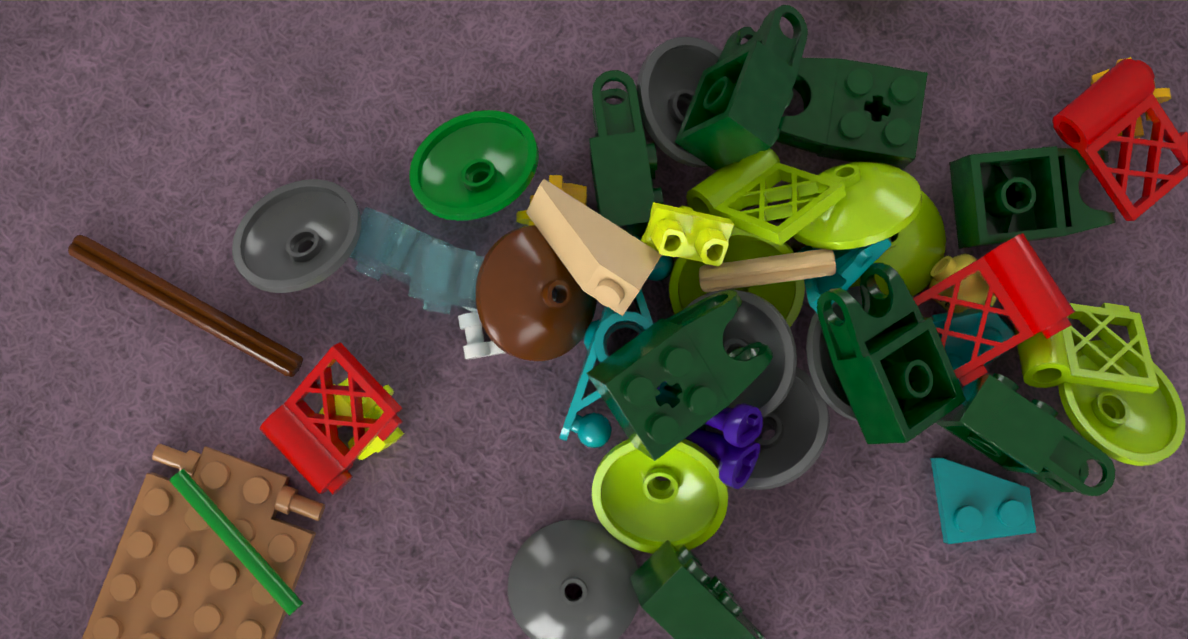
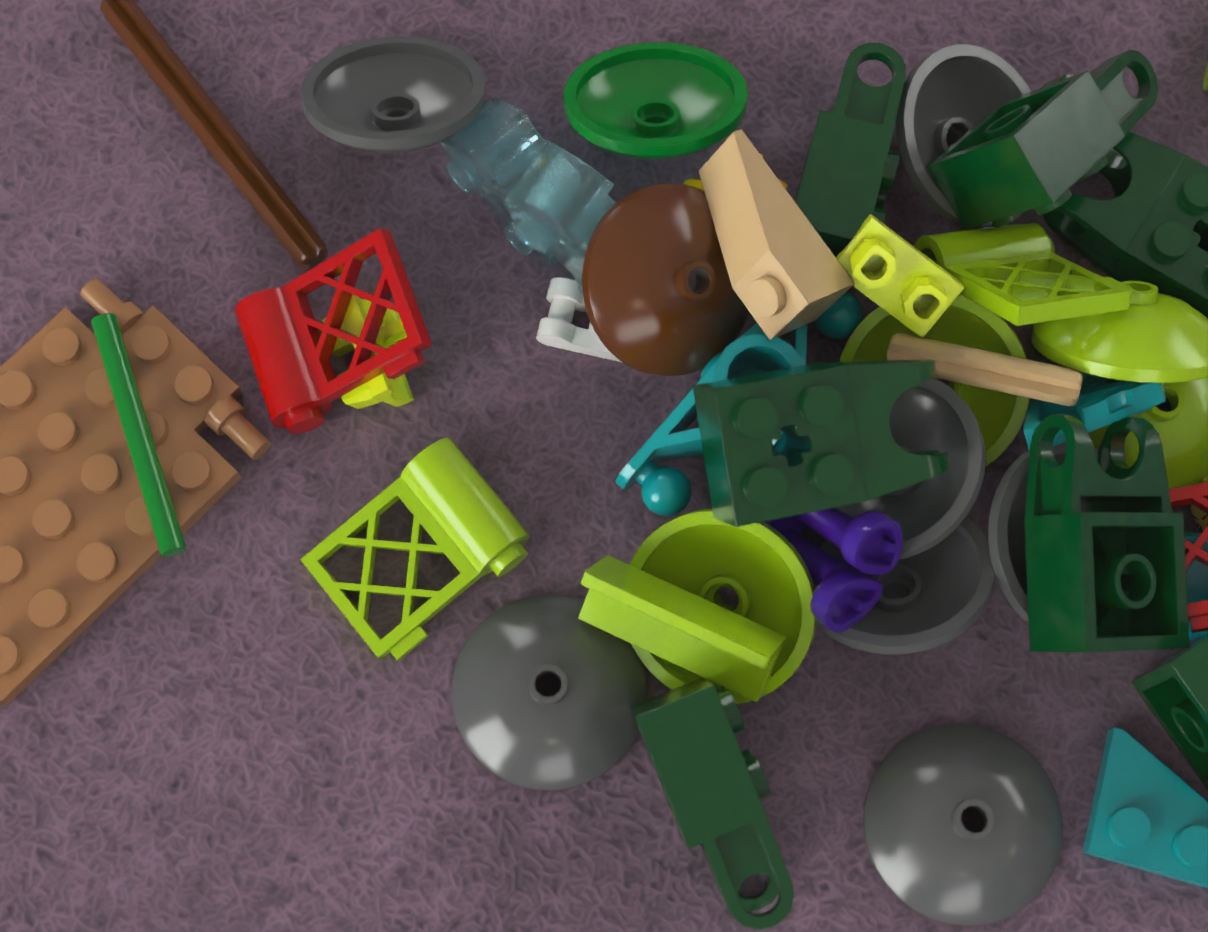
camera: 20 degrees right, 10 degrees down
(468, 502) = (457, 513): none -> lime piece
(640, 518) = (680, 627): none -> lime panel
(835, 549) = (918, 830): none -> dark grey dish

